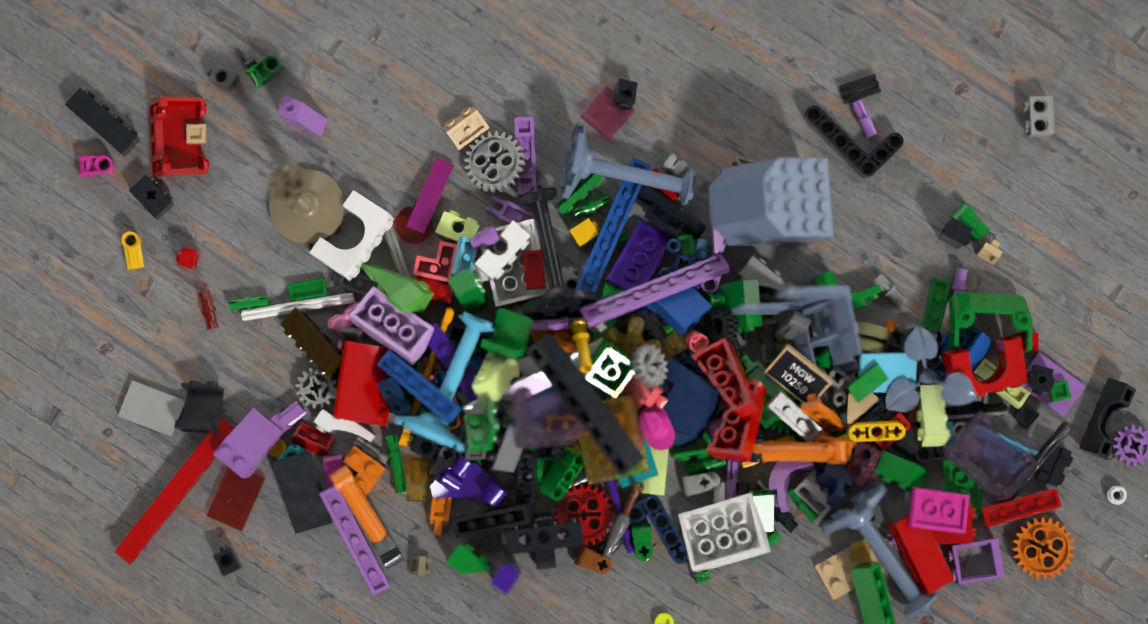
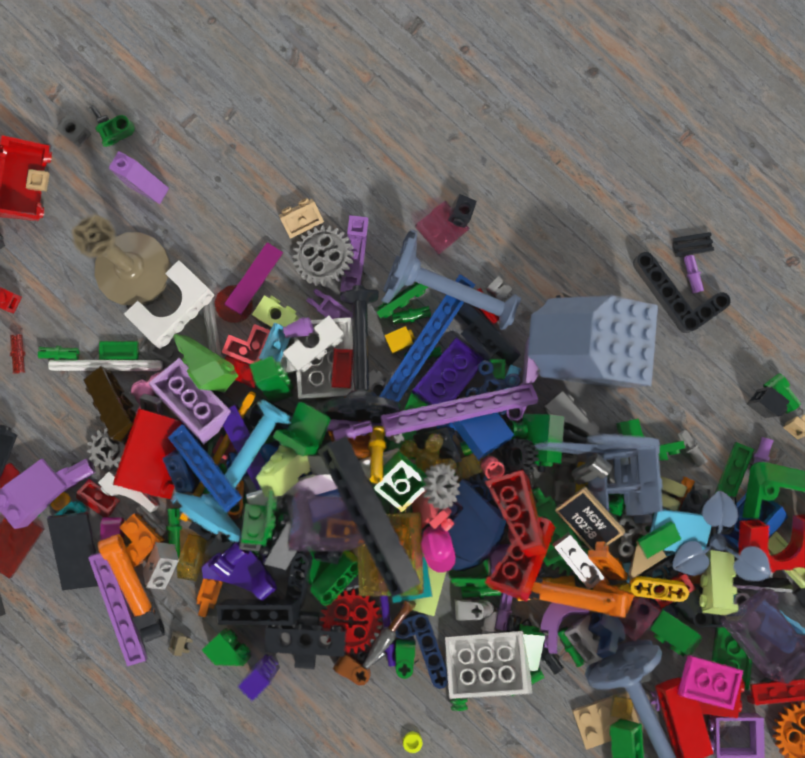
camera: 10 degrees right, 0 degrees up
(389, 491) = (160, 566): none -> light grey brick
(555, 327) = (353, 430): none -> medium lavender axle

